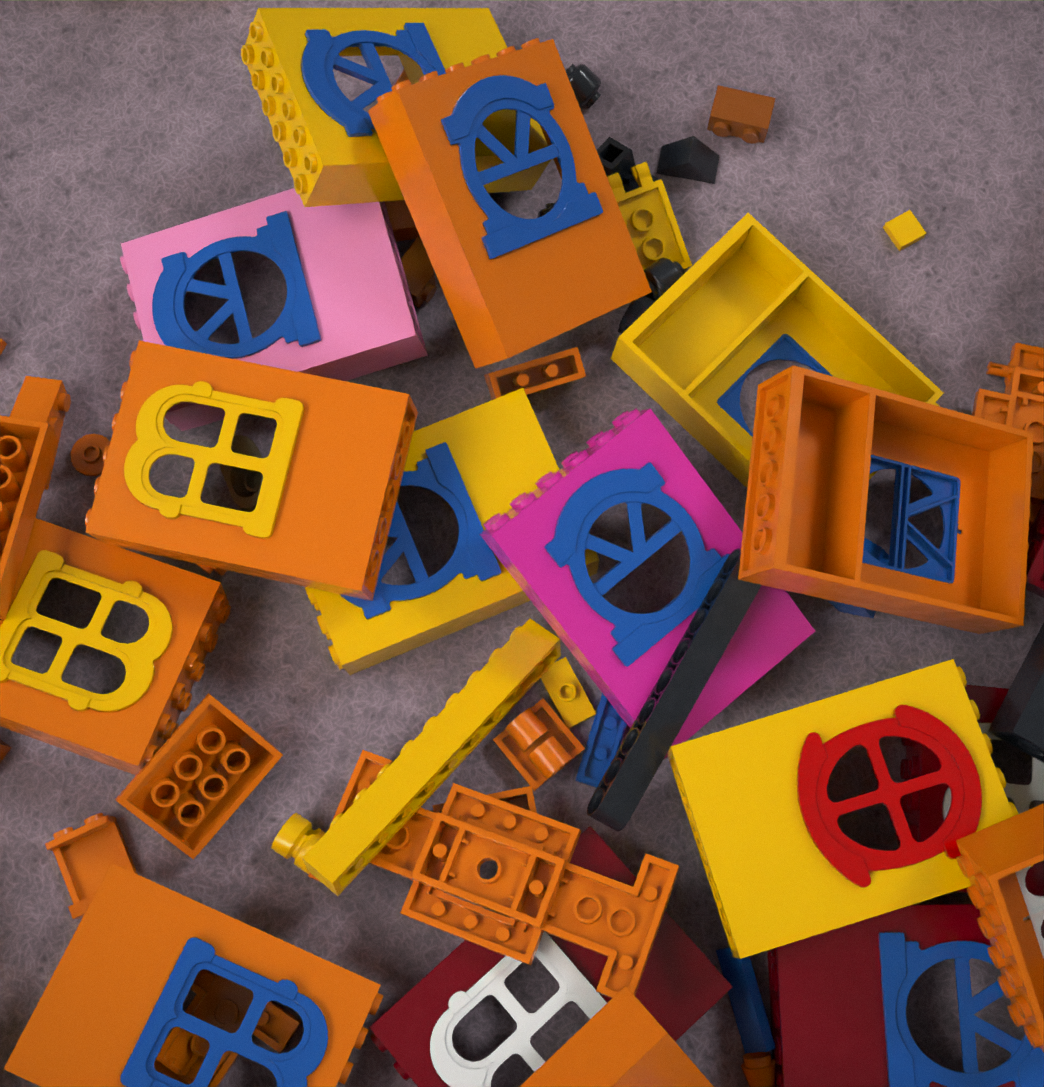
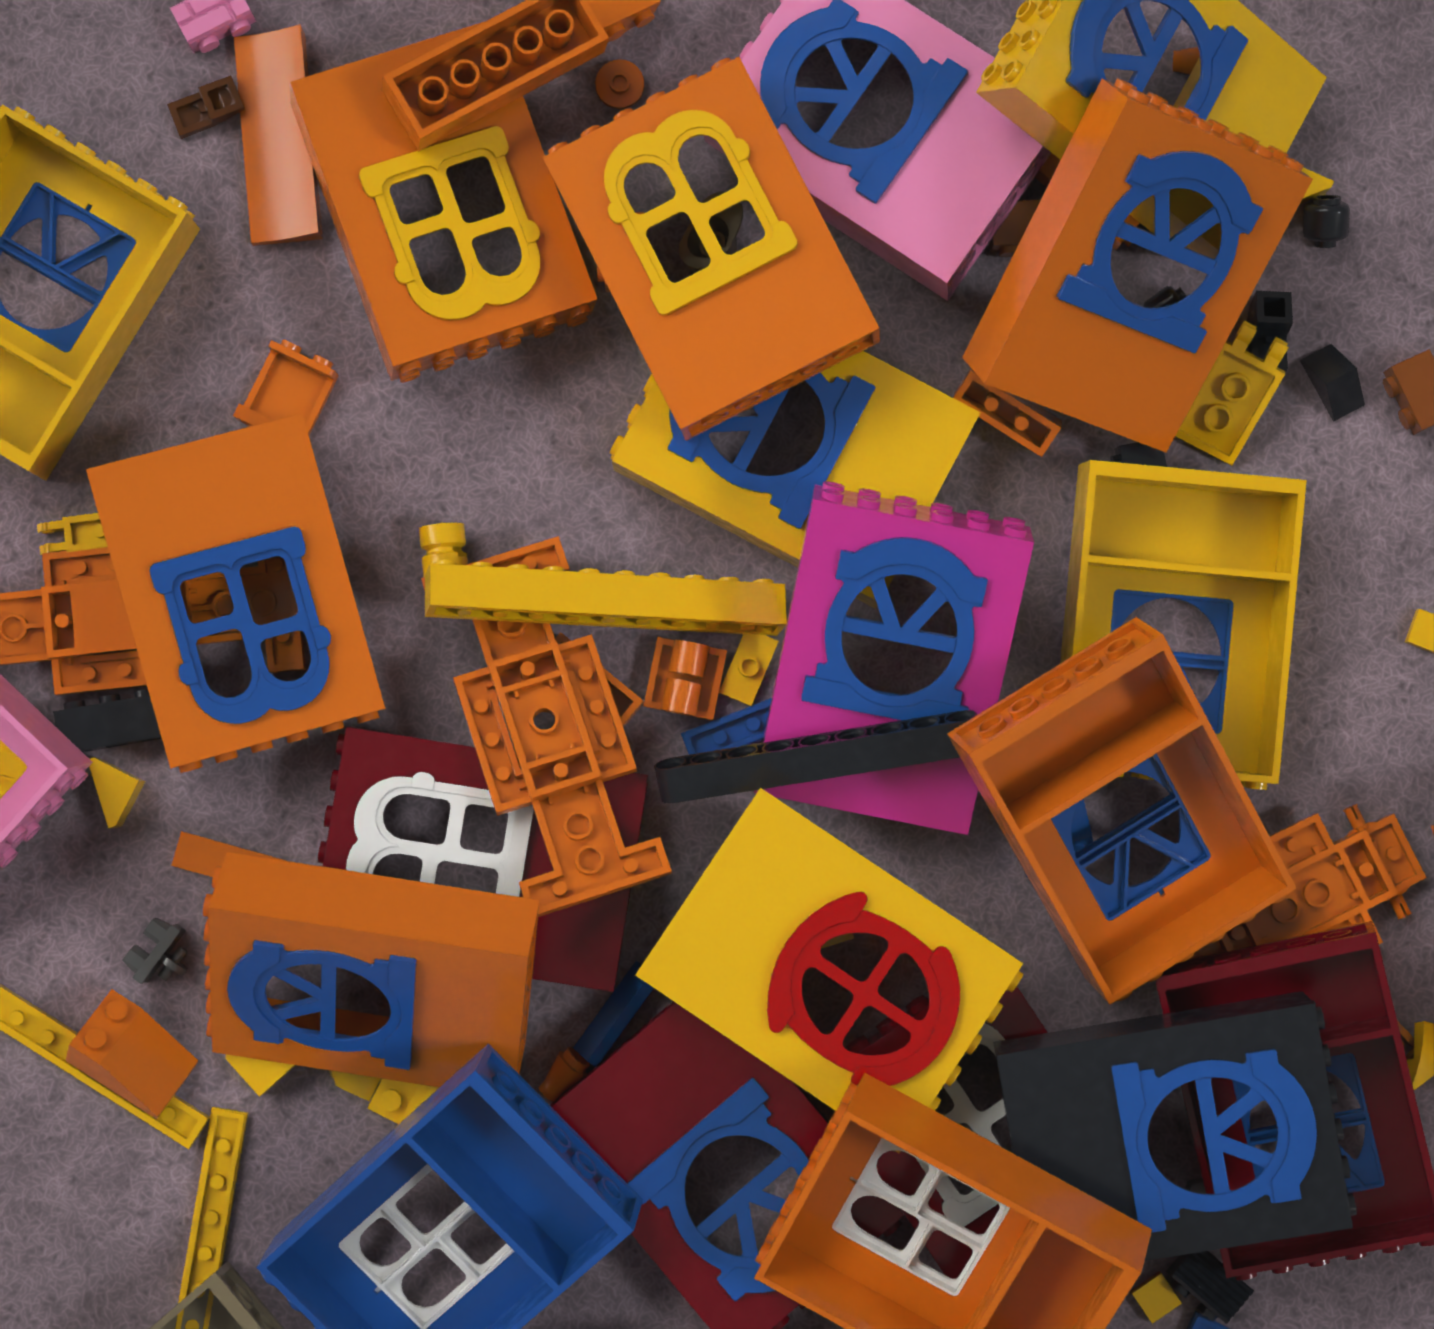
camera: 40 degrees right, 10 degrees up
(200, 776) = (428, 422): orange slope -> none
(662, 276) = (1192, 450): black head -> none

